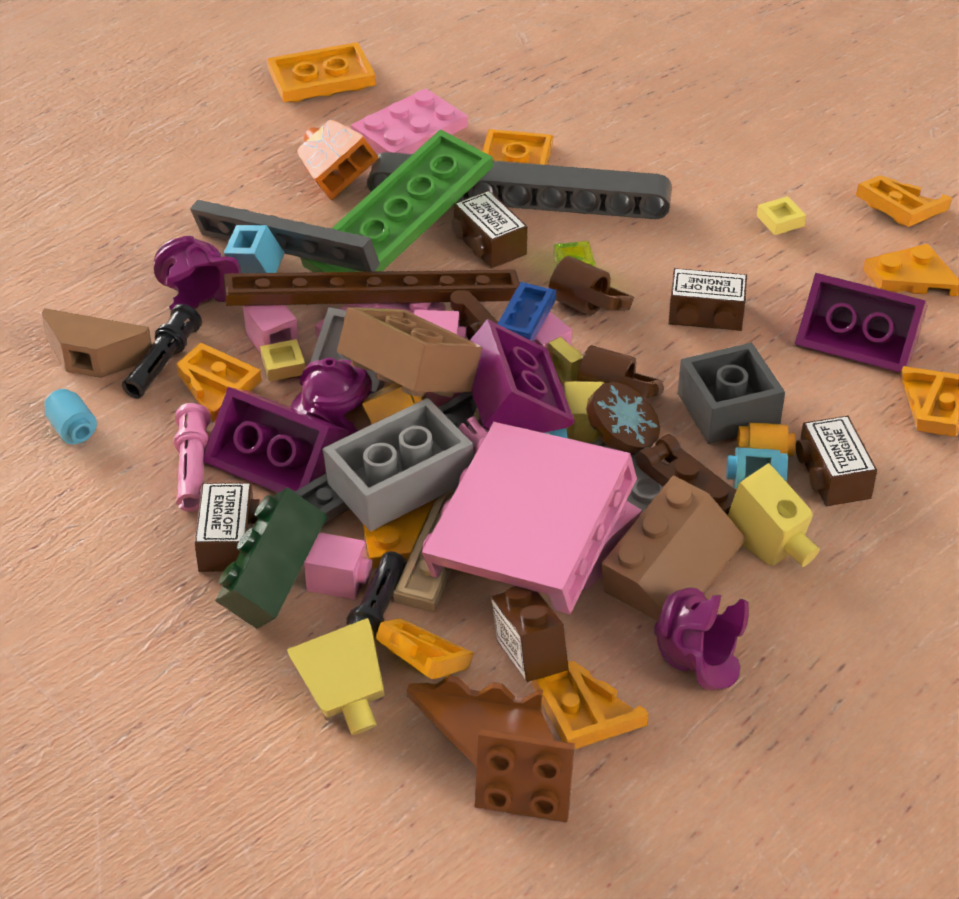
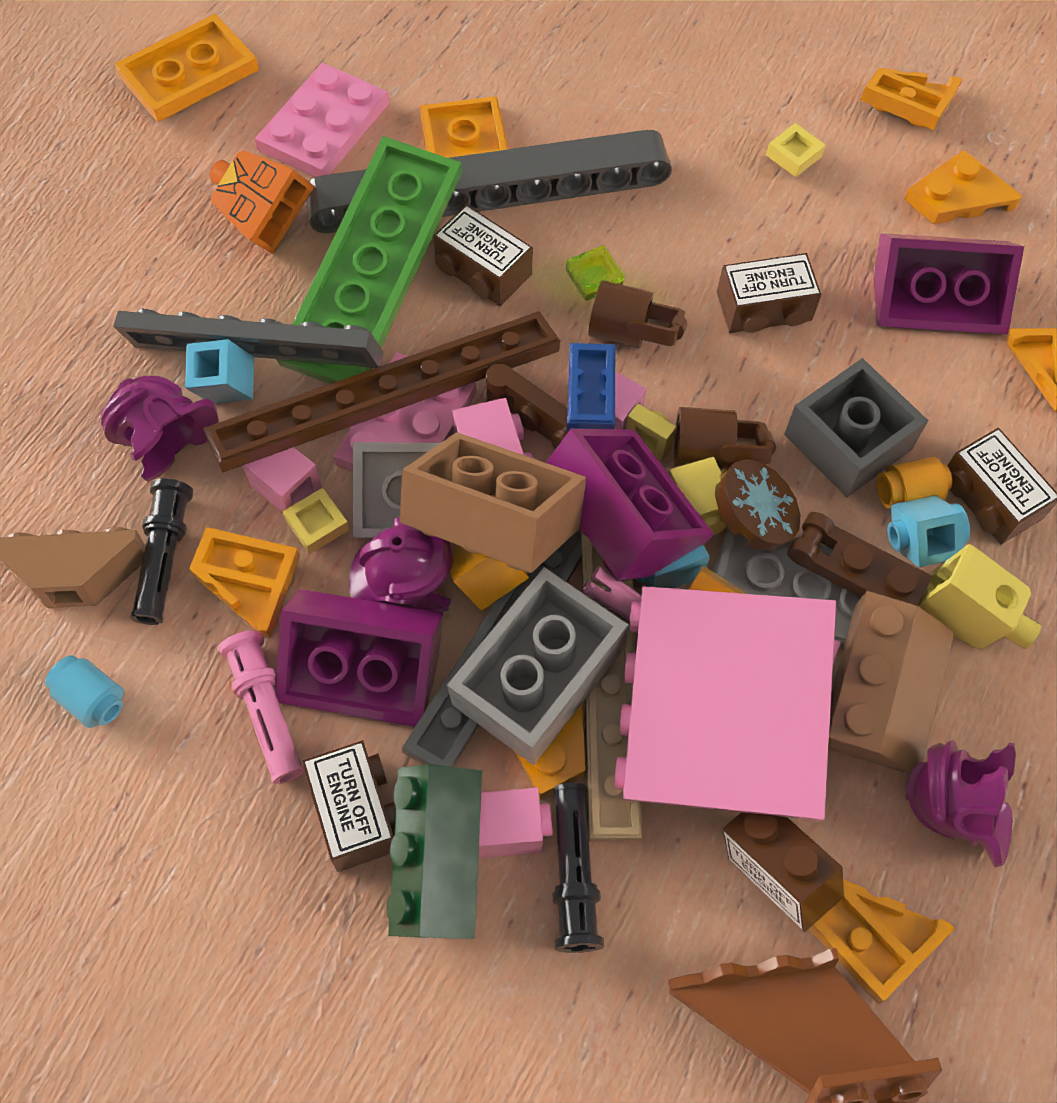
camera: 20 degrees left, 20 degrees up
(342, 673) = (590, 1003): light yellow torso -> none
(423, 649) = (666, 923): light orange wing -> none

